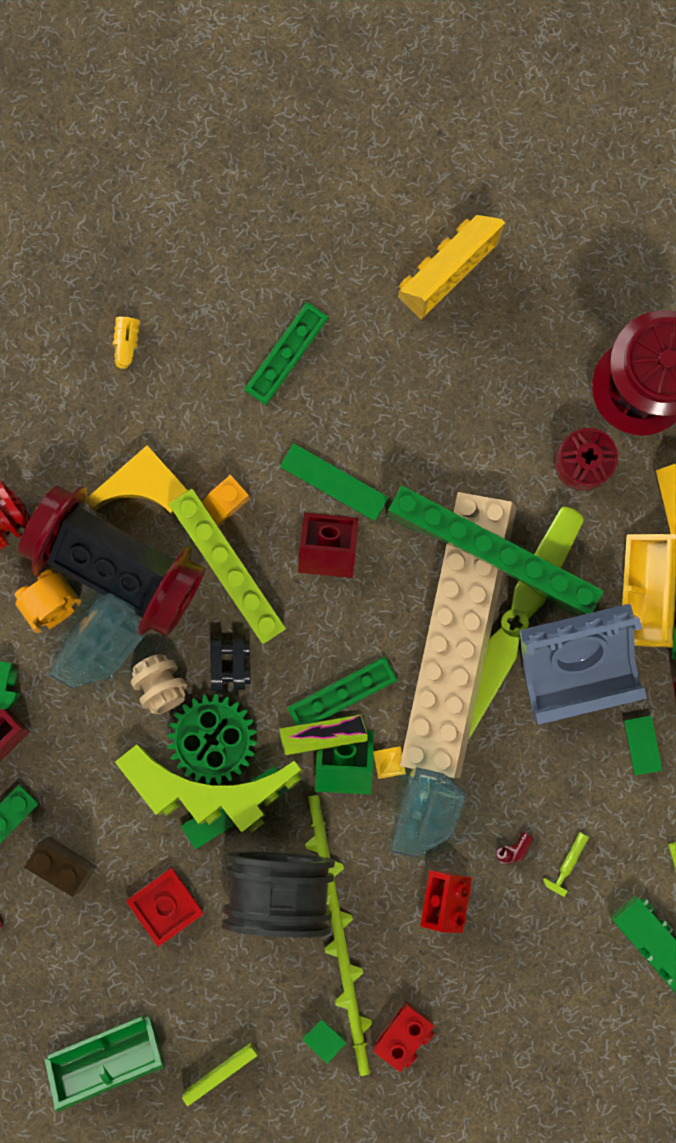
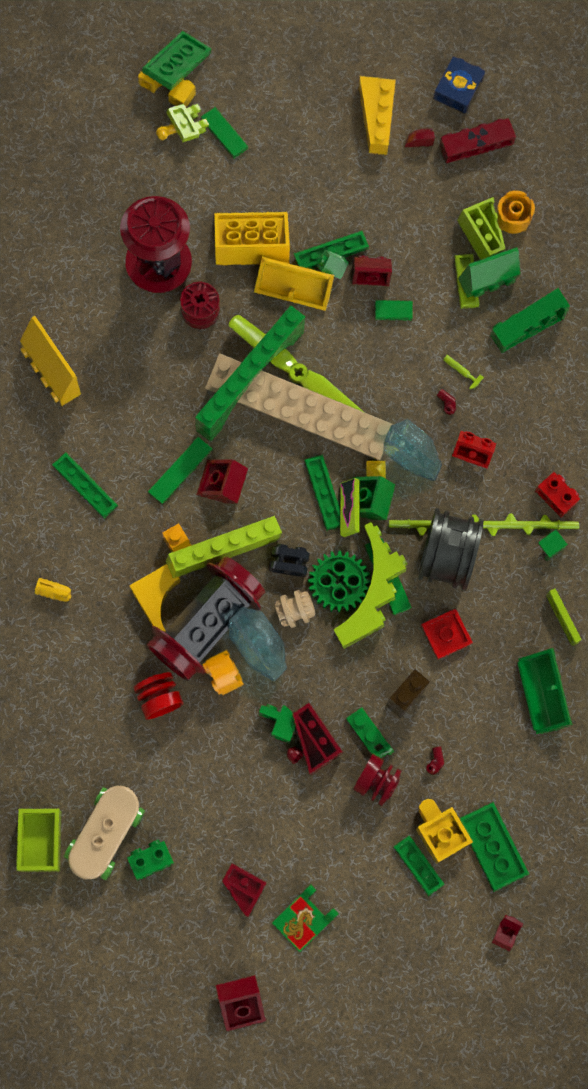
camera: 85 degrees left, 10 degrees down
(581, 664) = (335, 333): sand blue panel -> none

